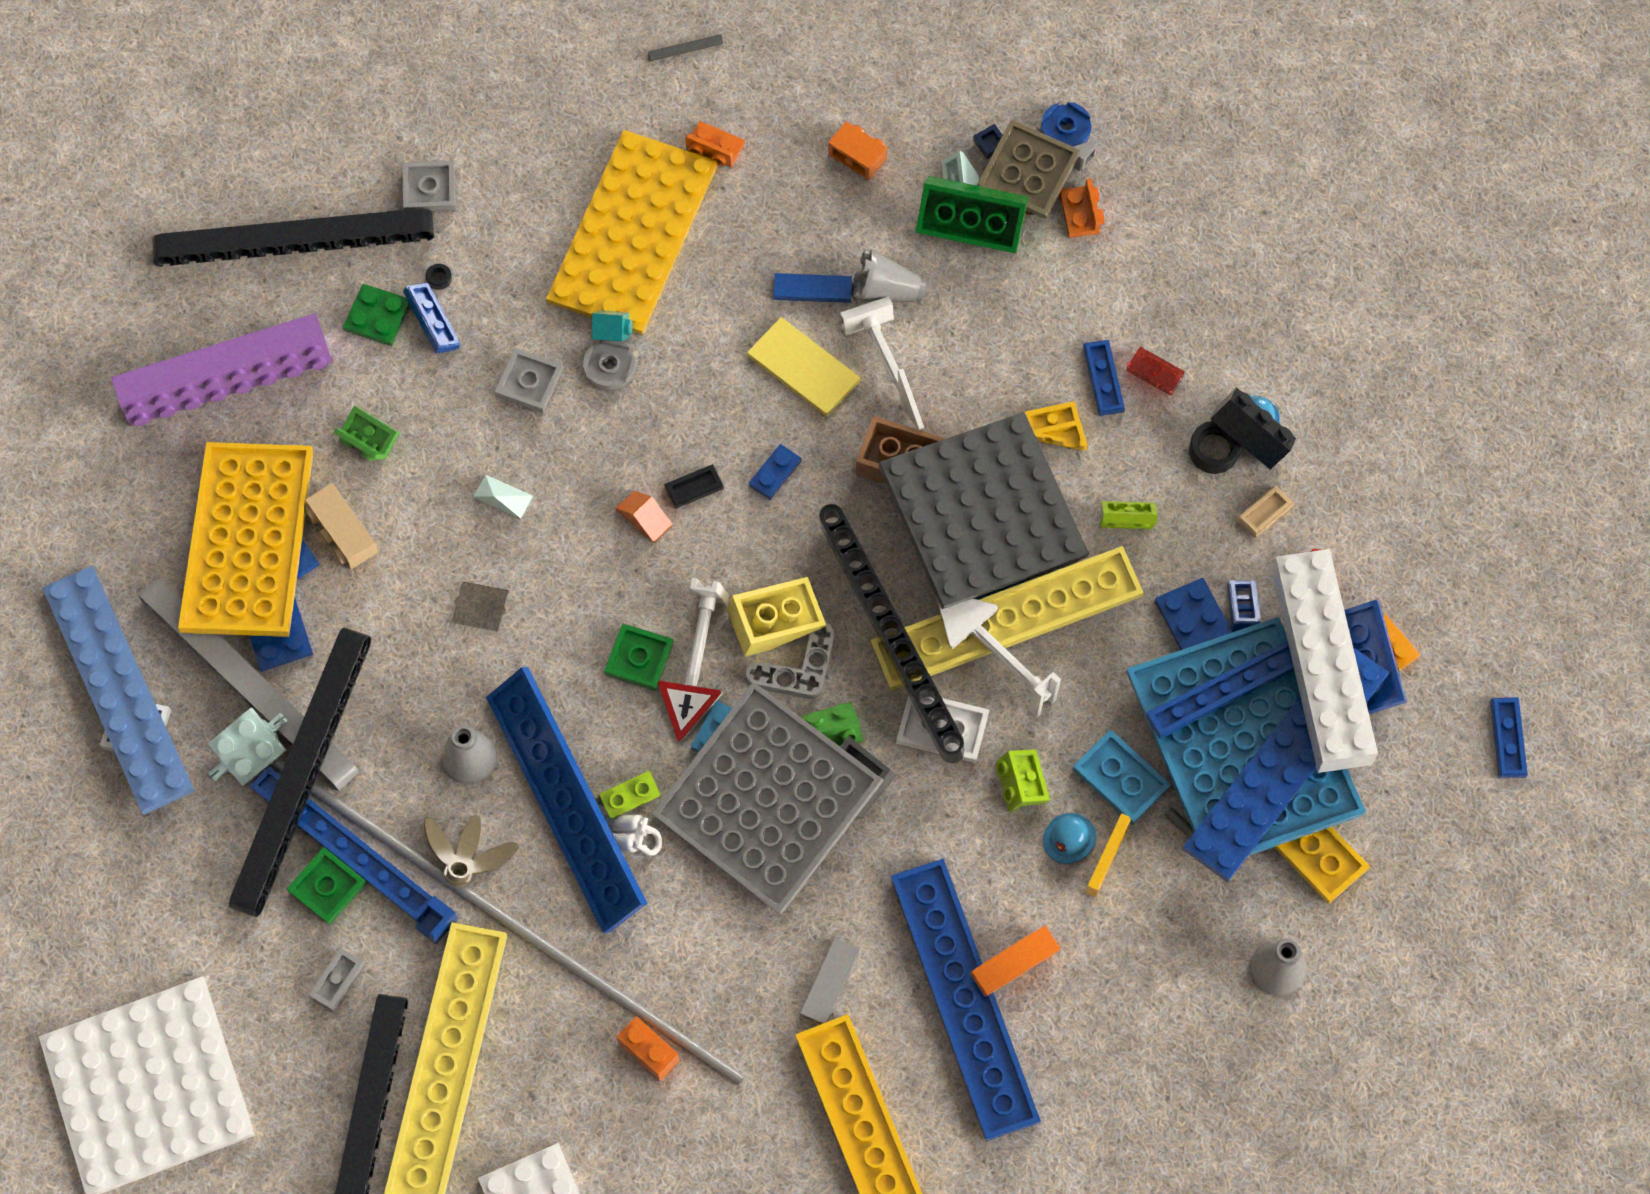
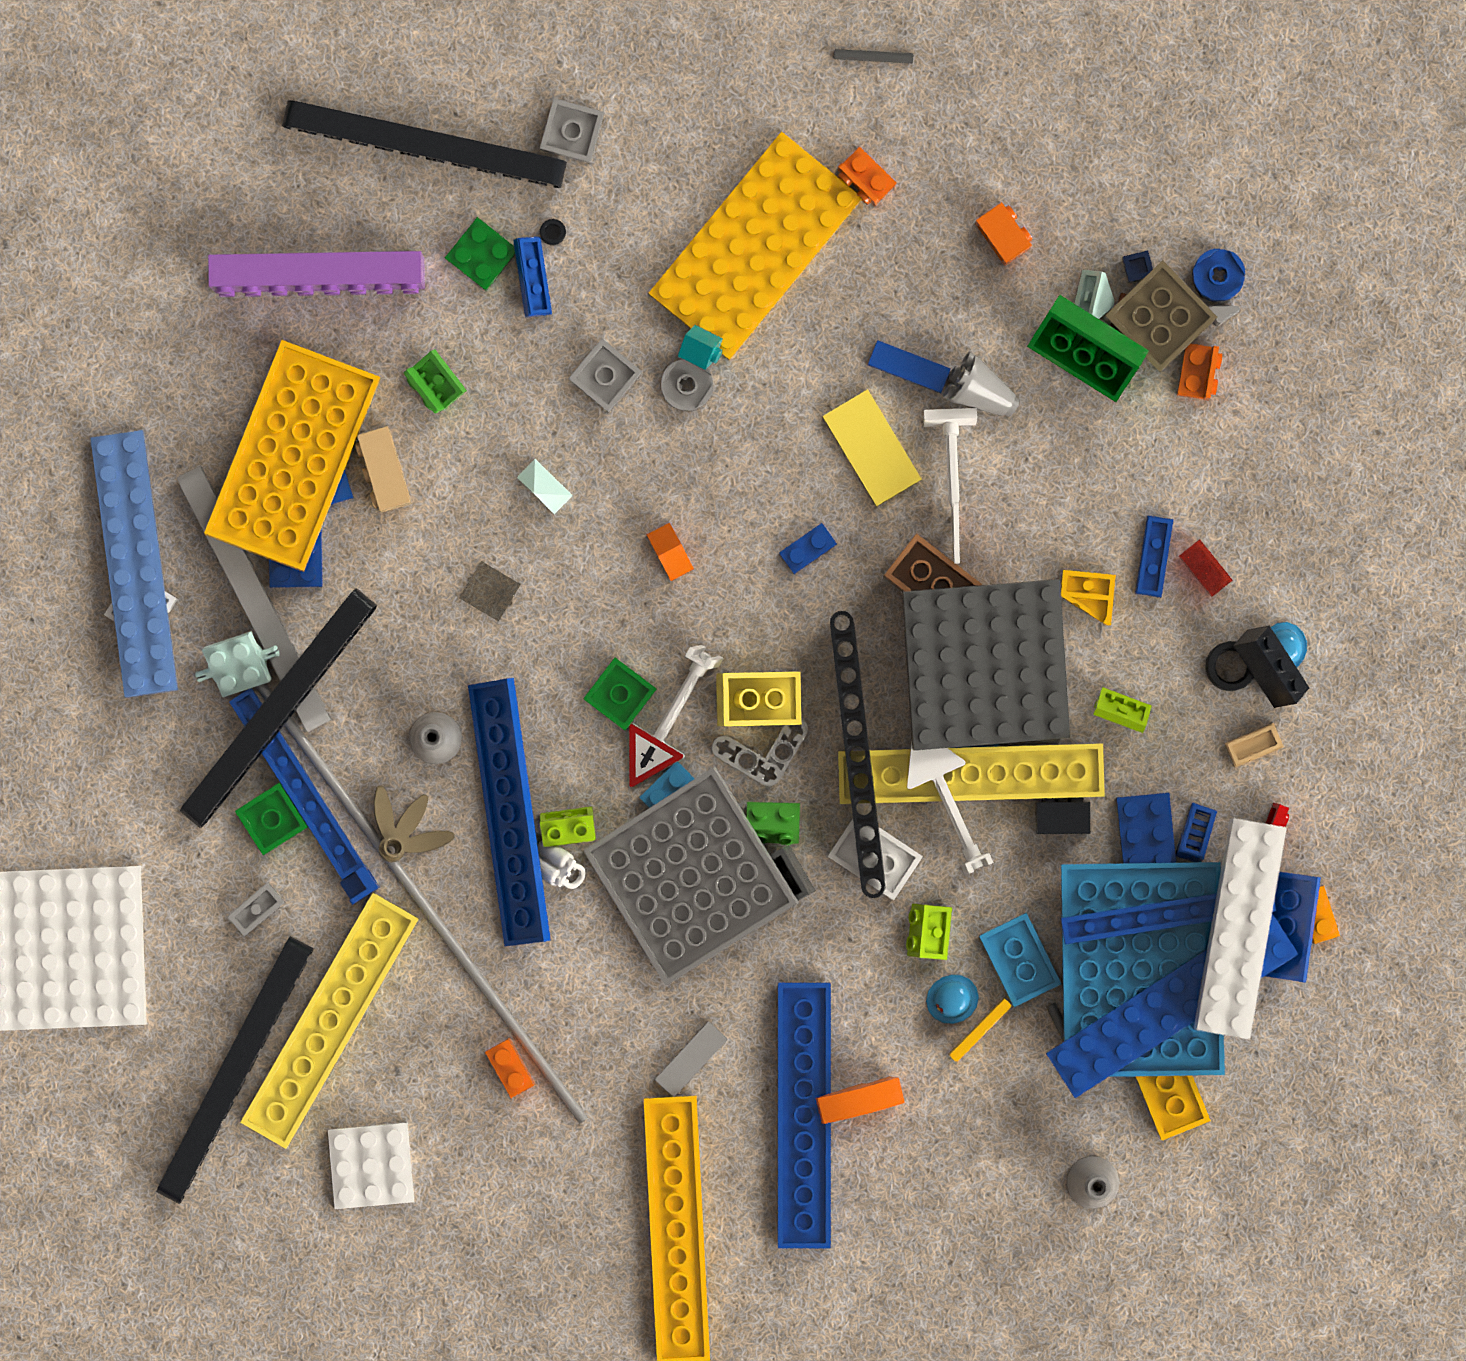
camera: 20 degrees right, 20 degrees up
(694, 486) = (726, 537): black tile -> none
(1110, 630) = (1062, 817): none -> black brick
(1508, 737) = (1388, 1041): blue tile -> none

